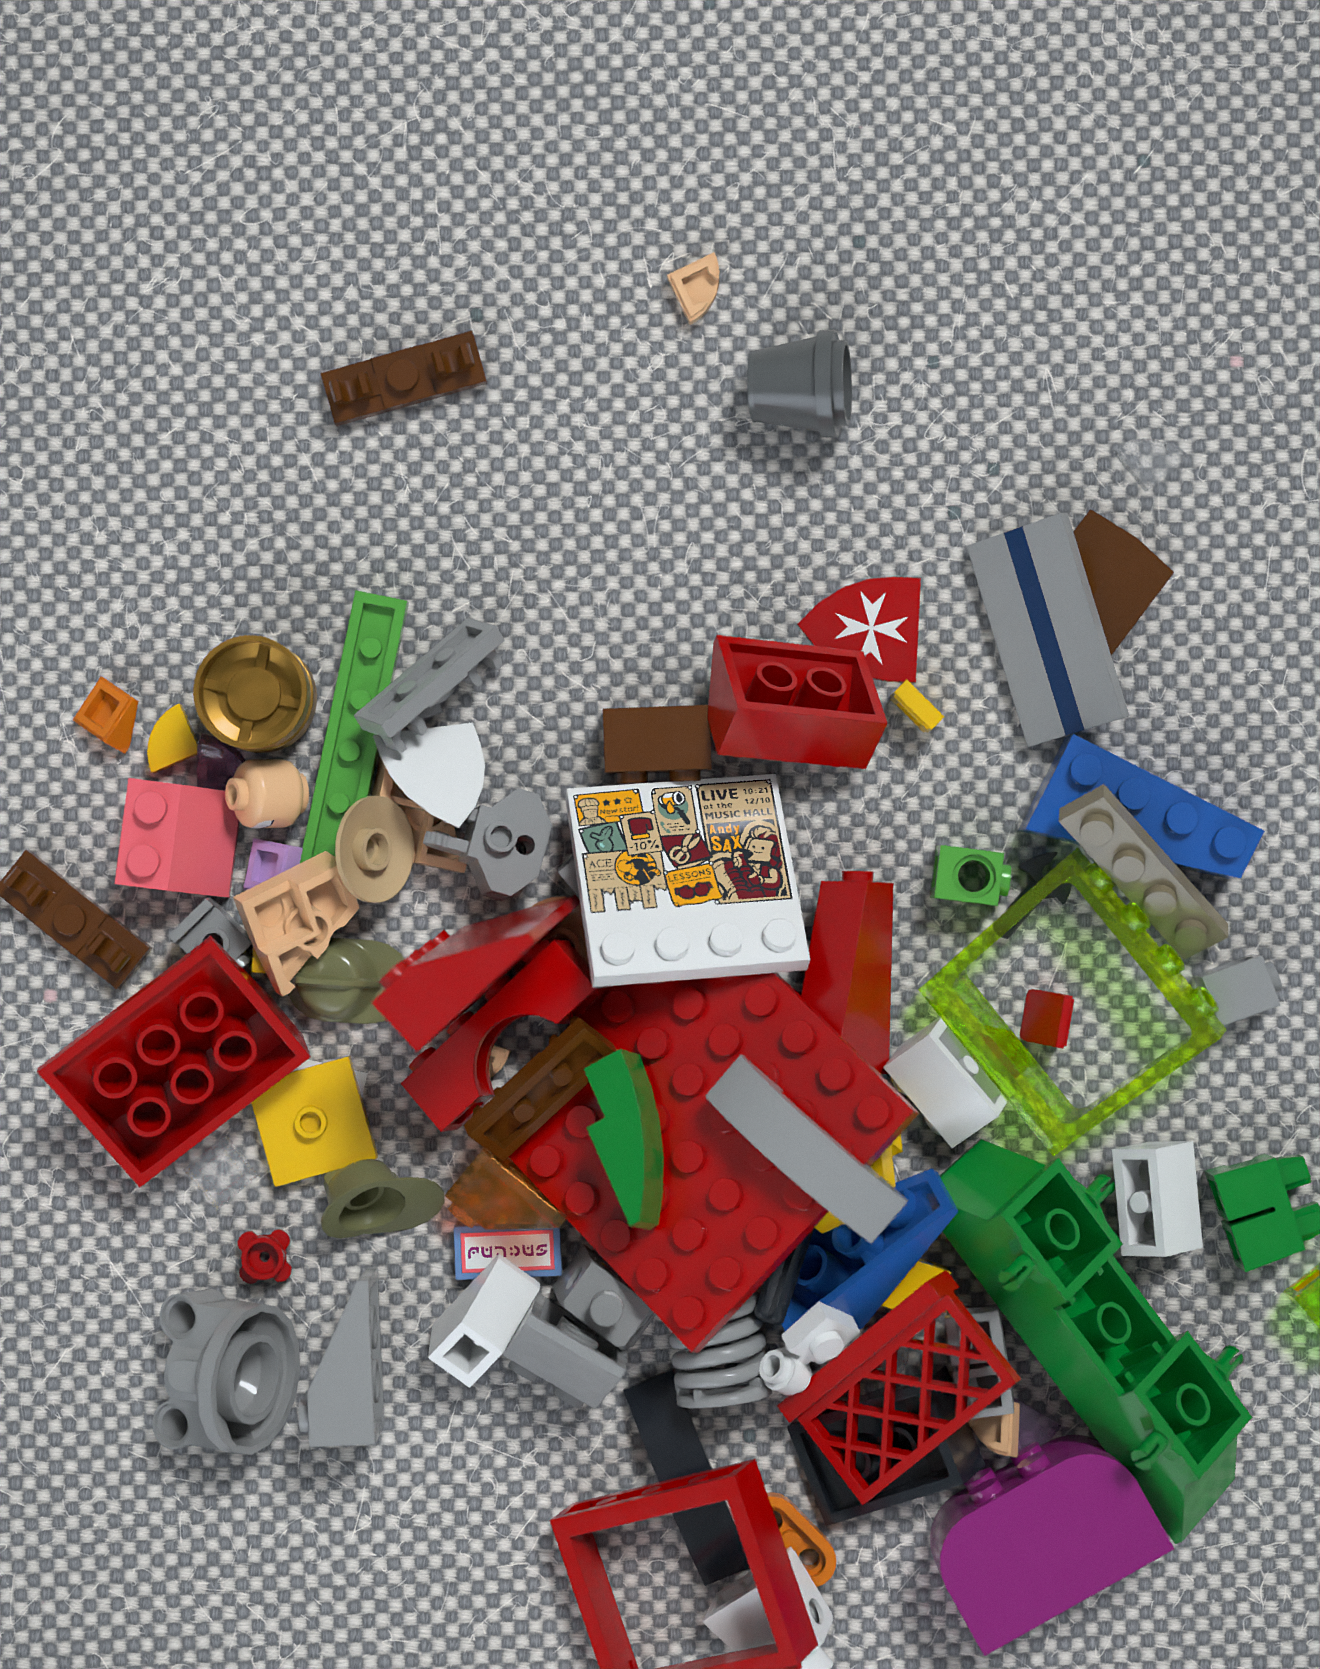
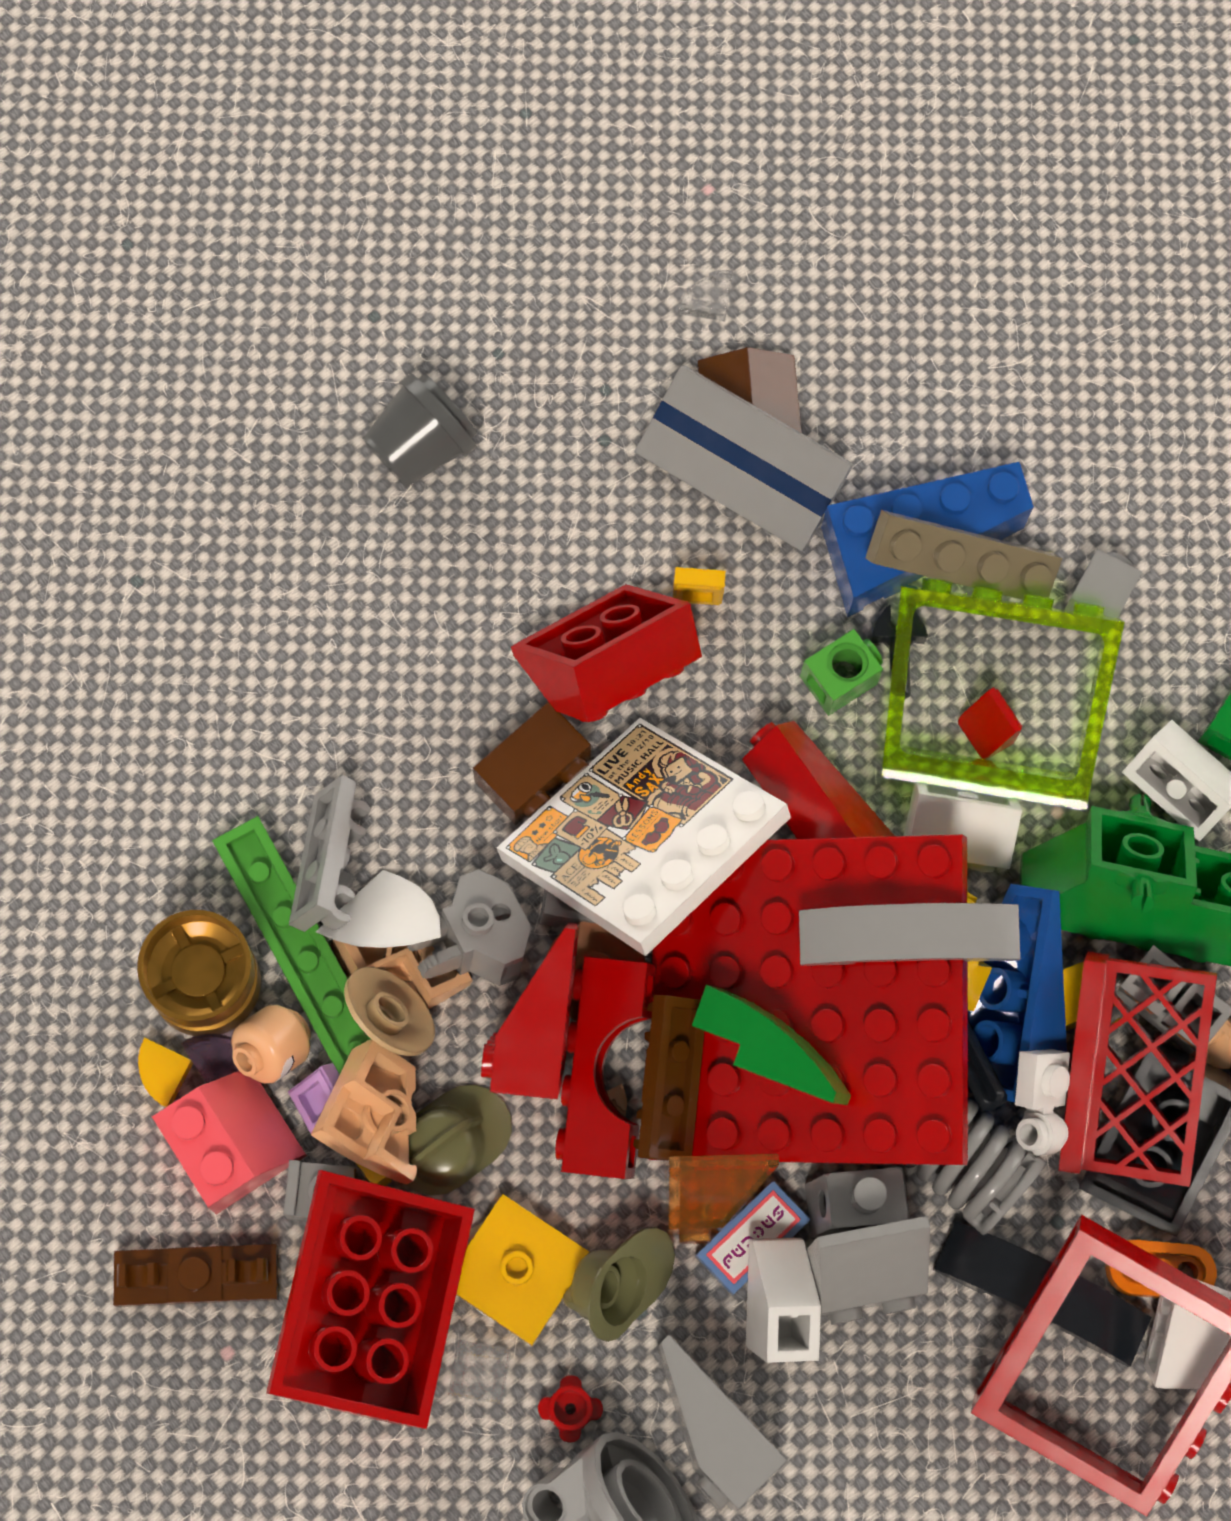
camera: 45 degrees left, 15 degrees down
(109, 714) = (96, 1093): orange slope -> none
(404, 378) = (119, 666): reddish brown plate -> none
(696, 286) = (282, 434): light nougat tile -> none
(872, 618) = (613, 555): red sticker -> none

